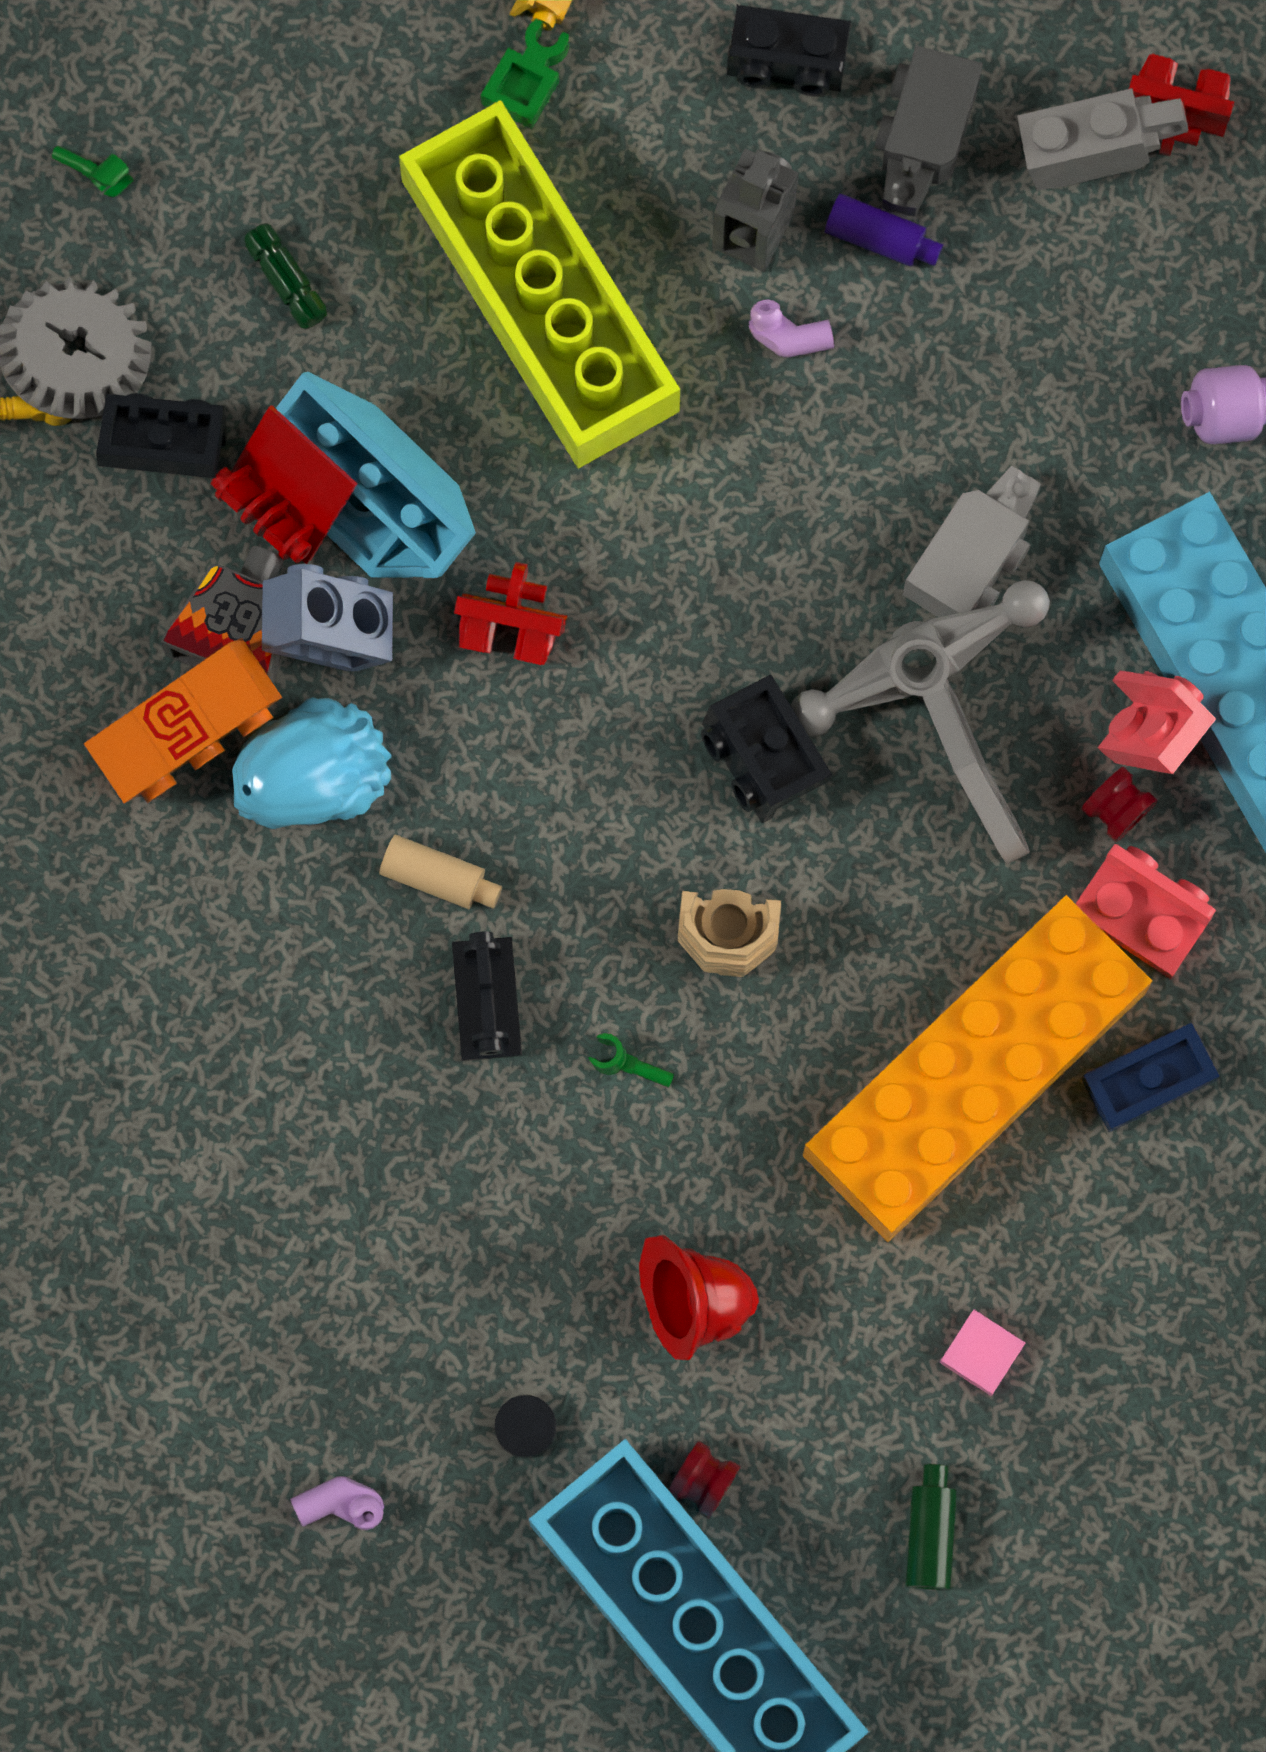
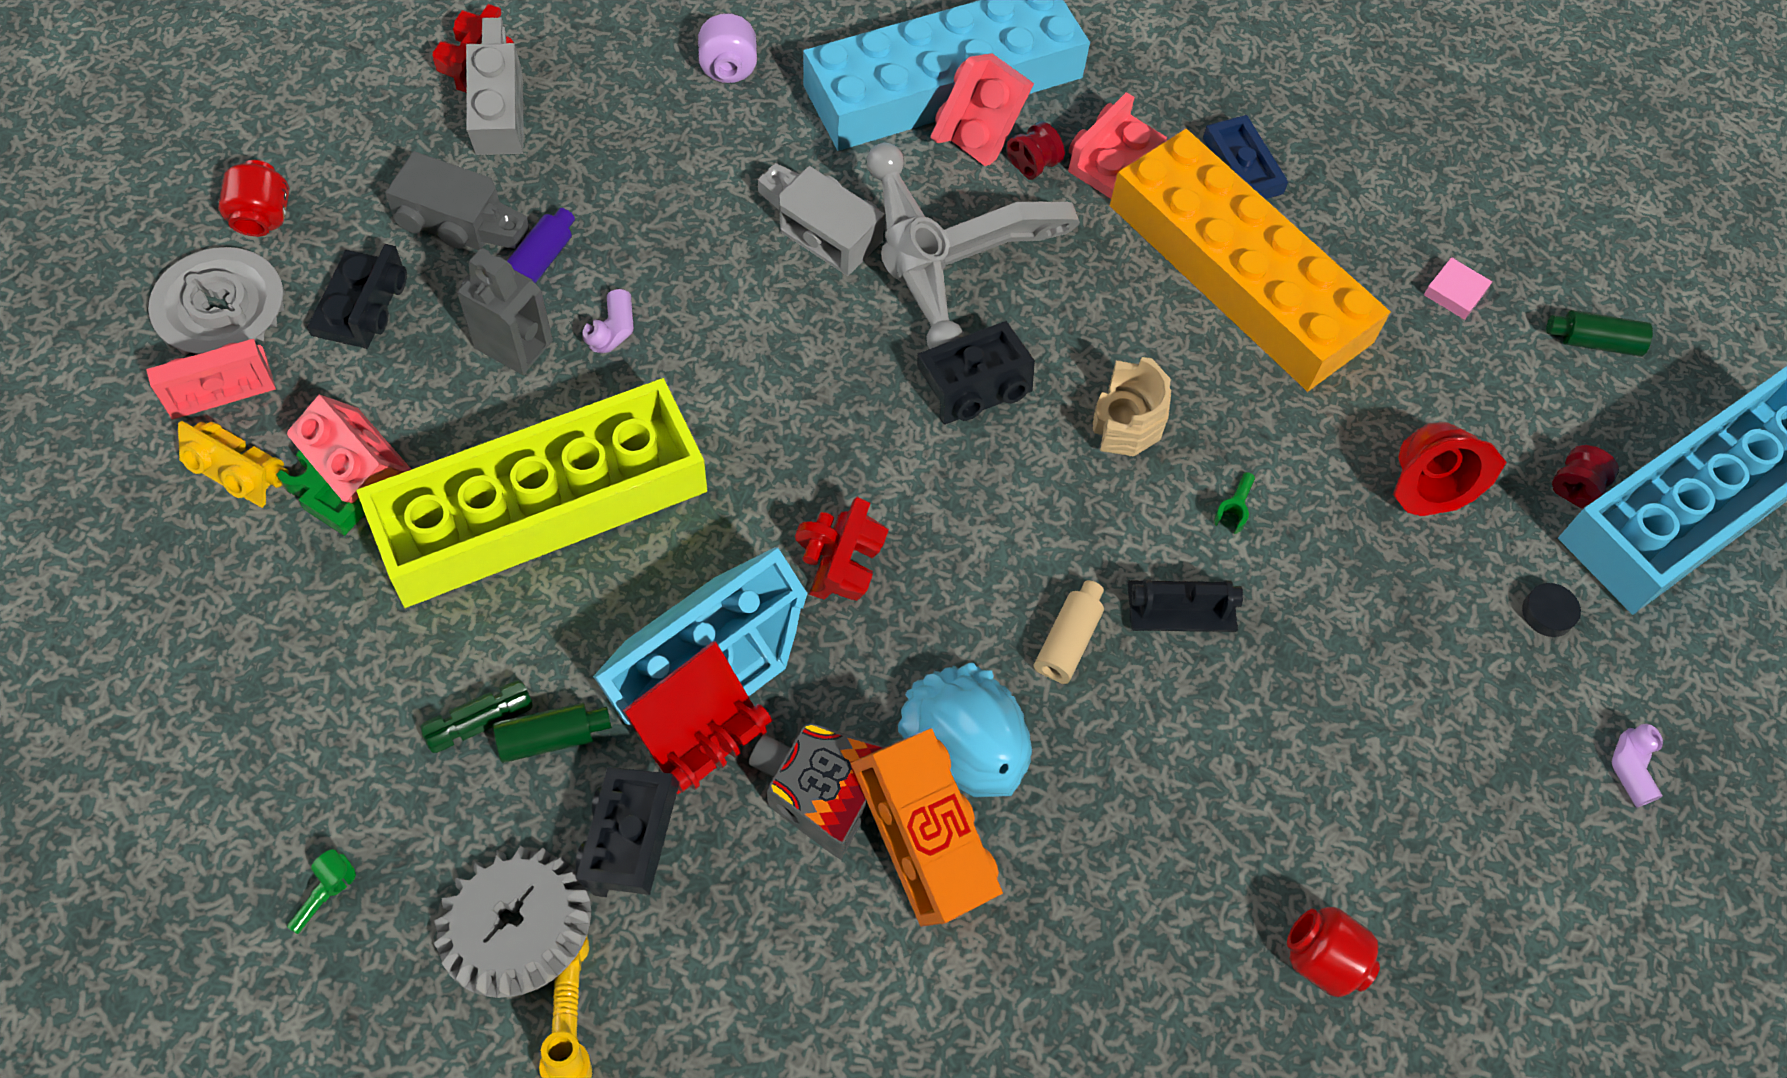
camera: 90 degrees left, 15 degrees down
(97, 1145) = (1333, 951): none -> red head
(270, 342) = (548, 731): none -> dark green cylinder
(327, 619) = (834, 690): sand blue brick -> none
(576, 86) = (344, 447): none -> coral bracket

